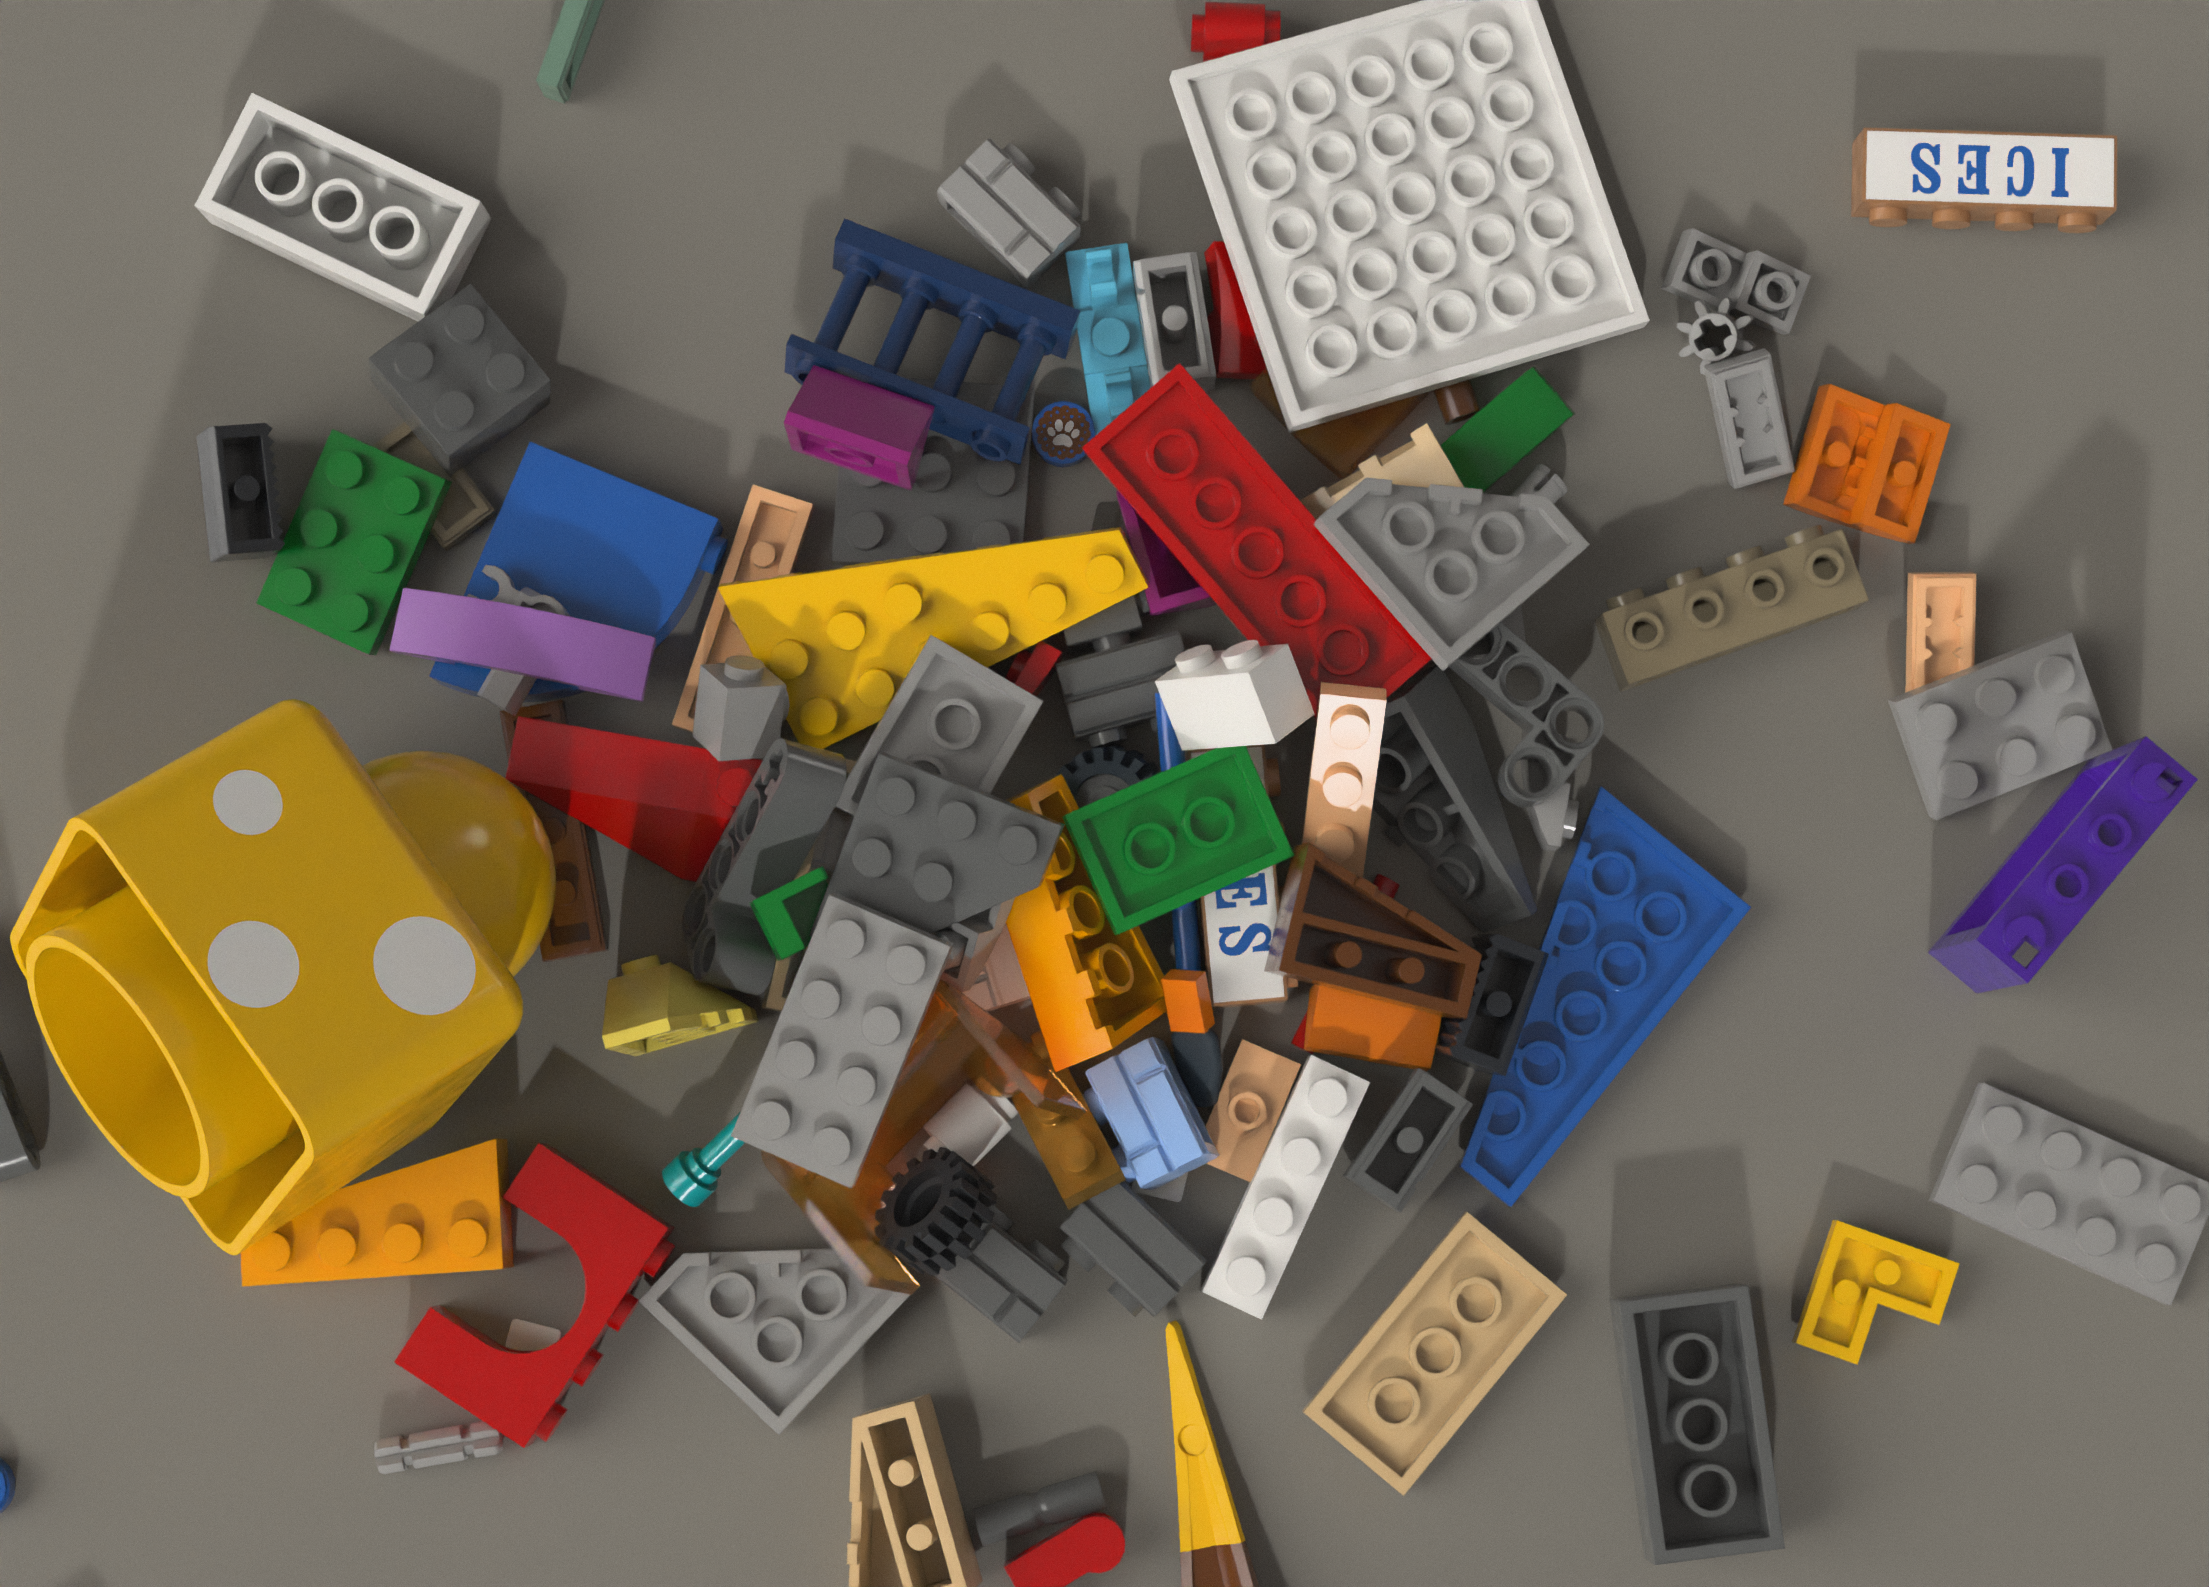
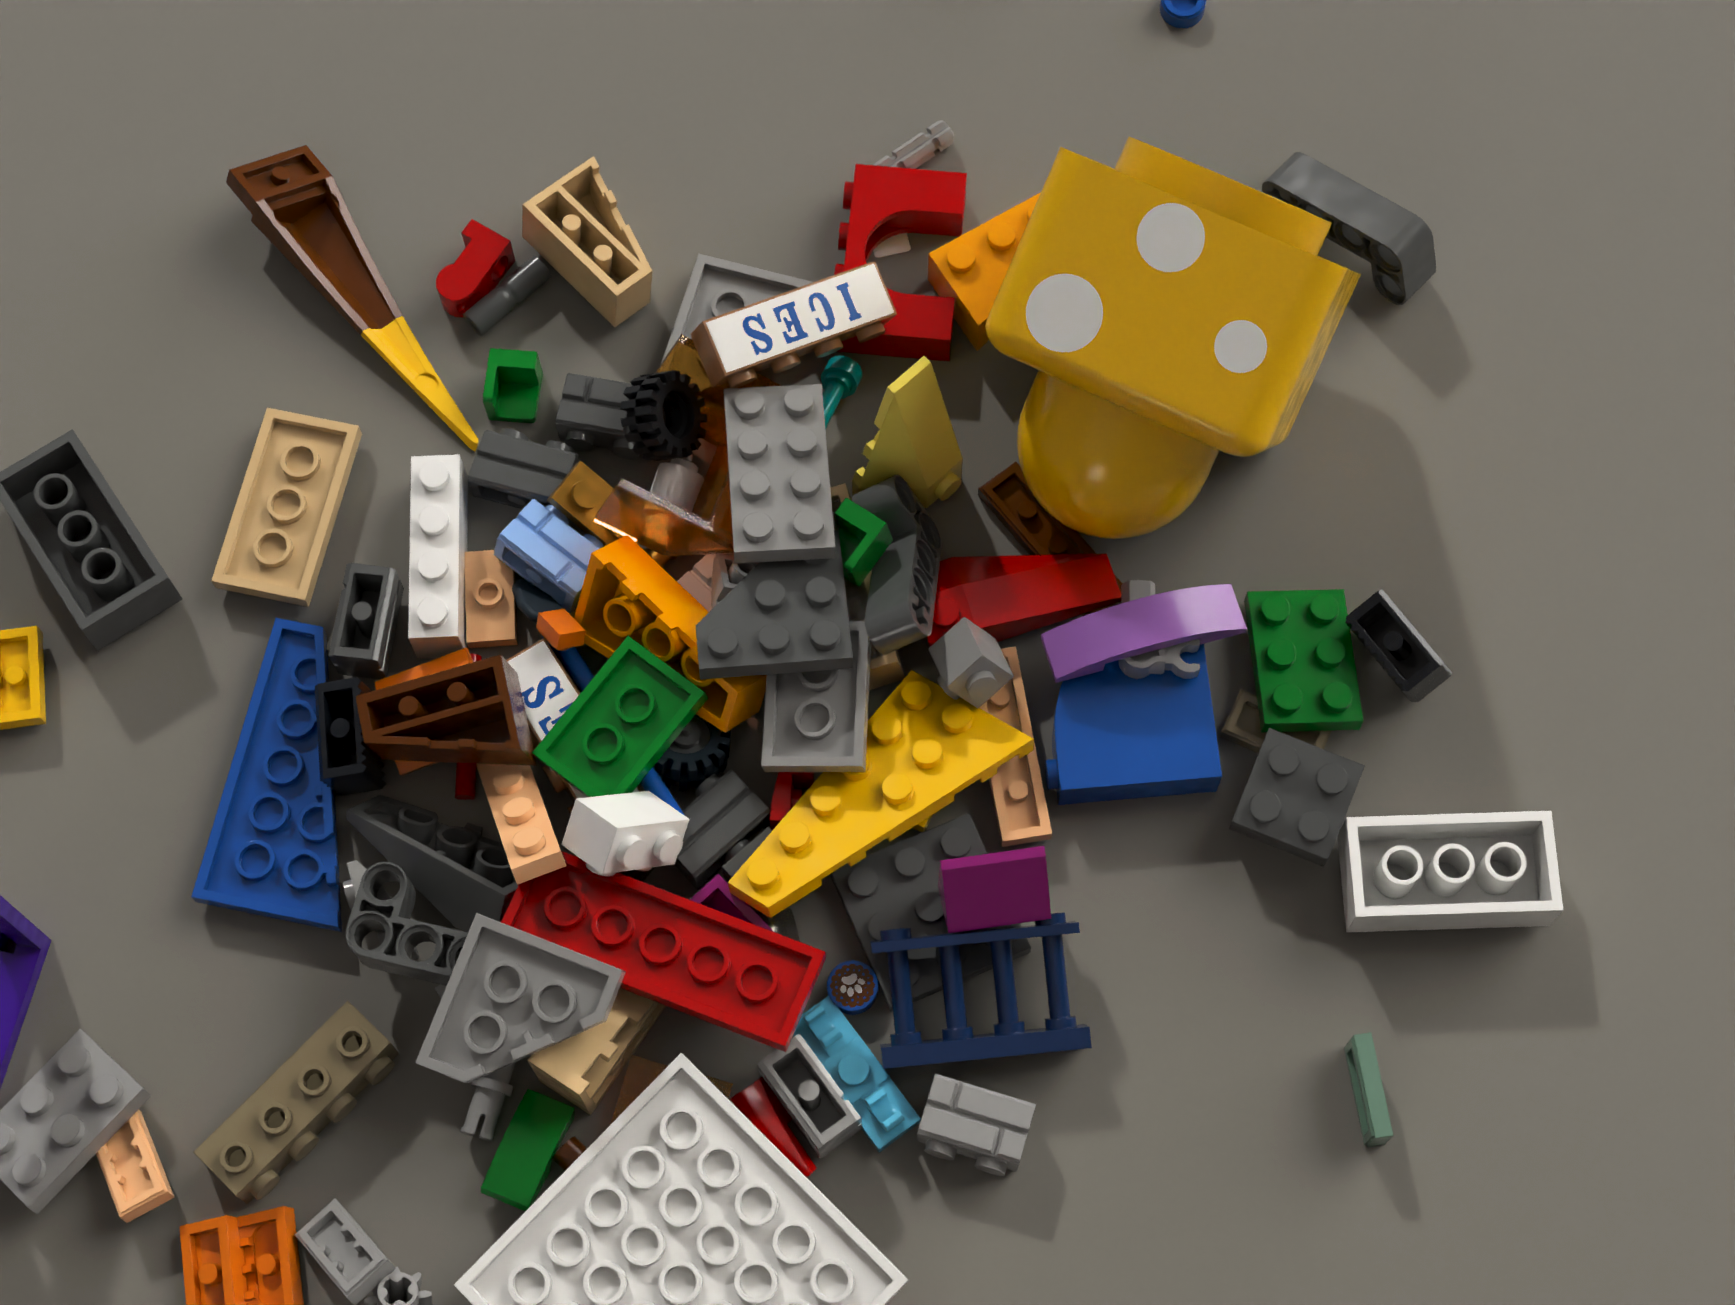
camera: 155 degrees right, 15 degrees down
(723, 1229) = (793, 325): none -> brick
(1092, 1372) = (512, 385): none -> green panel

